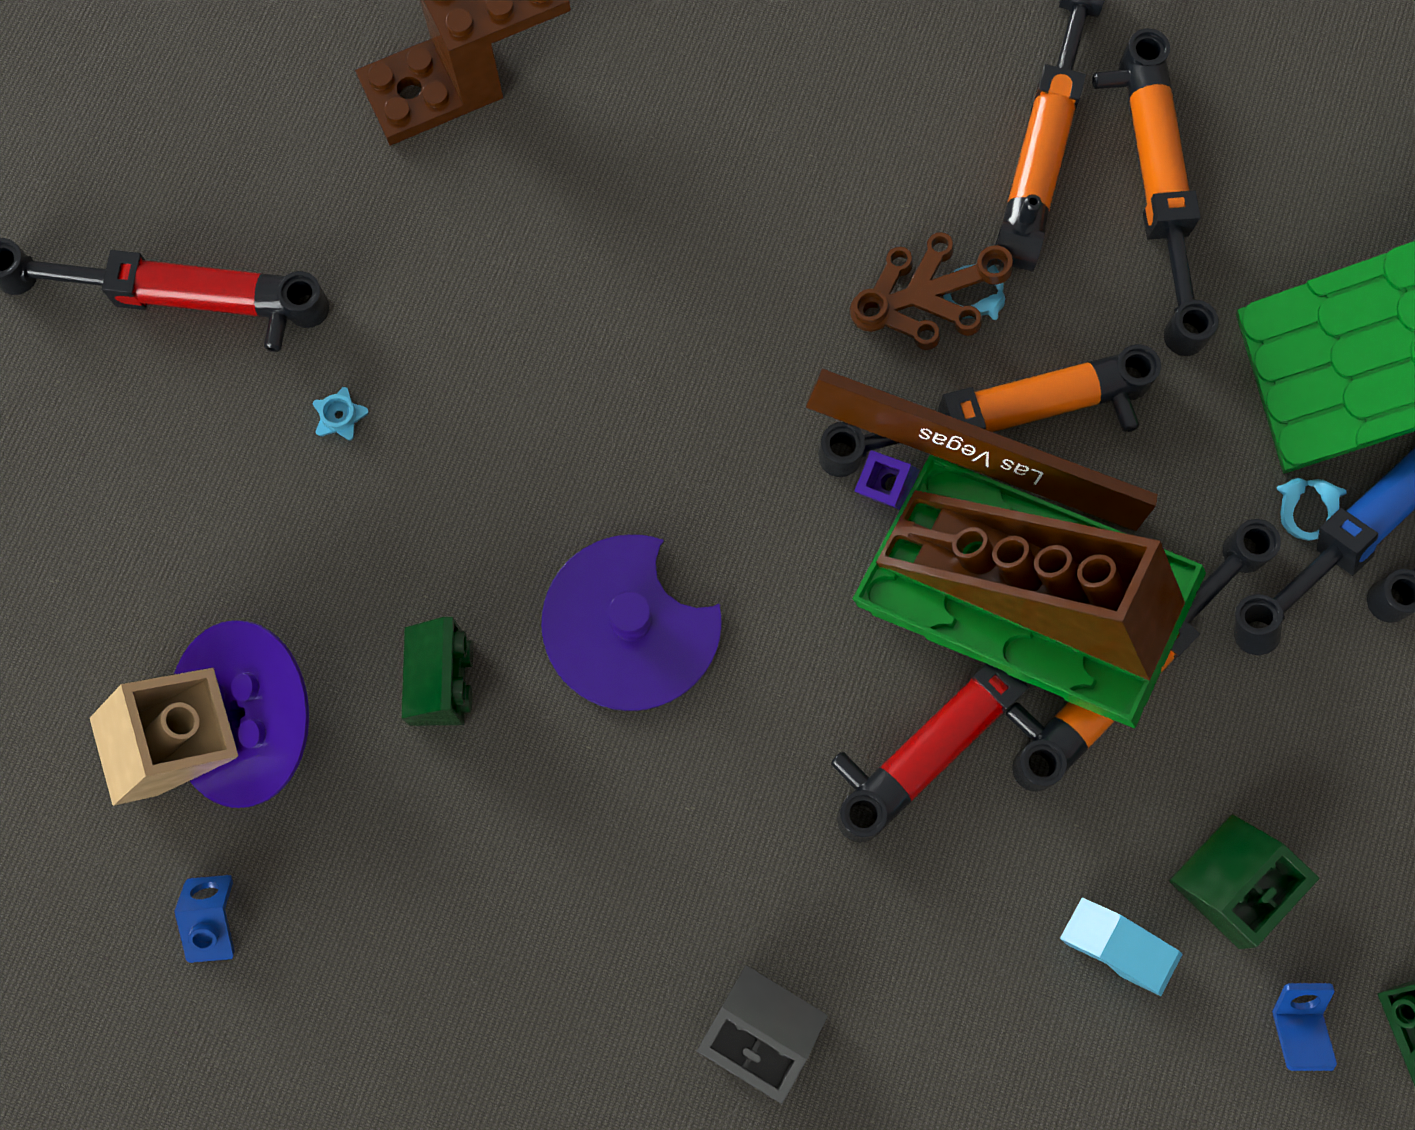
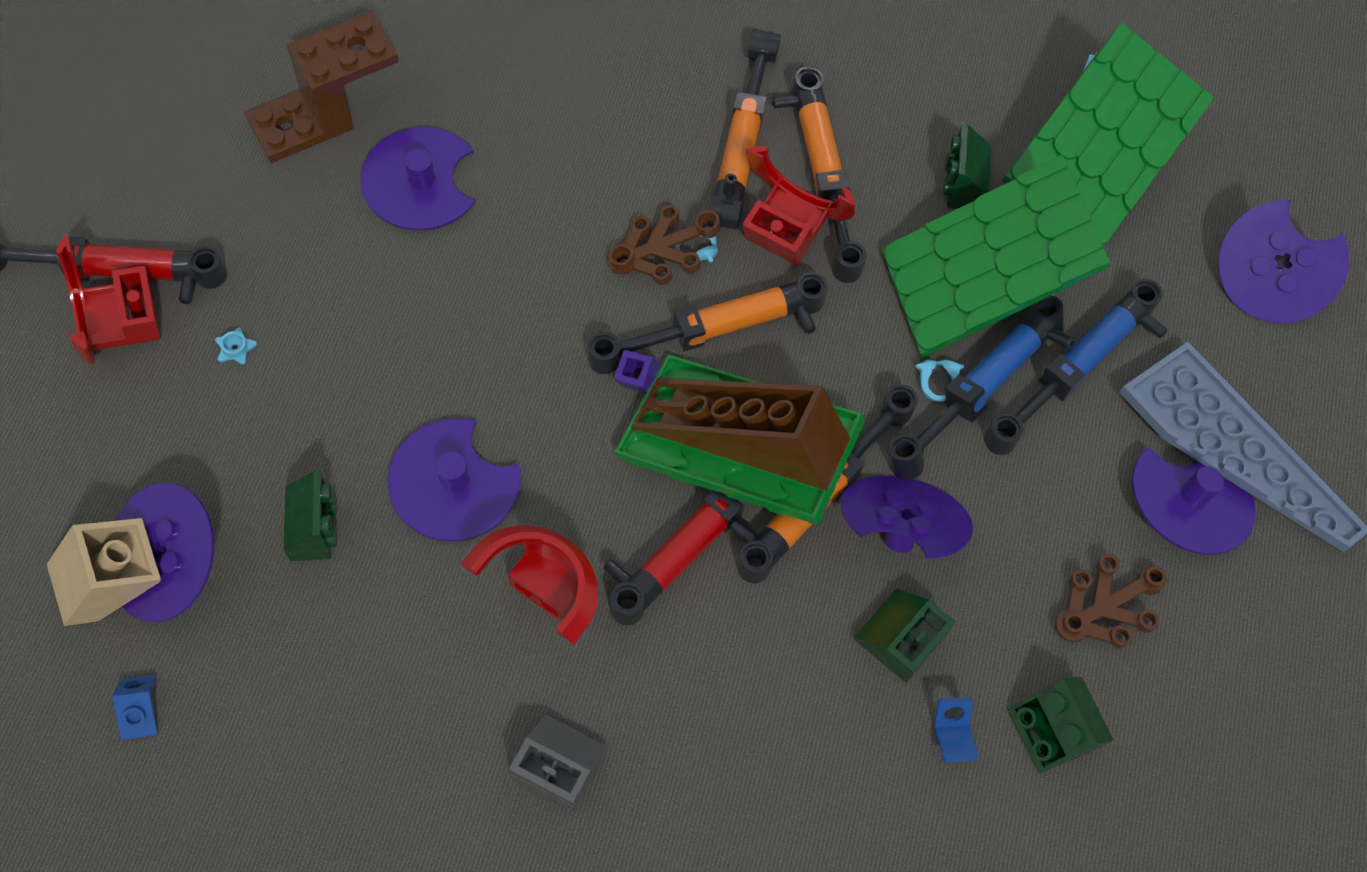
camera: 10 degrees left, 10 degrees down
(172, 361) = (108, 313): none -> red piece
(581, 177) = (411, 178): none -> dark purple piece
(757, 771) = (548, 574): none -> red piece
(980, 450) = (696, 344): reddish brown tile -> none
(1112, 252) = (789, 215): none -> red piece
(1122, 946) = (821, 682): medium azure slope -> none
(1258, 709) = (908, 514): none -> dark purple piece
(1369, 197) = (967, 168): none -> dark green slope

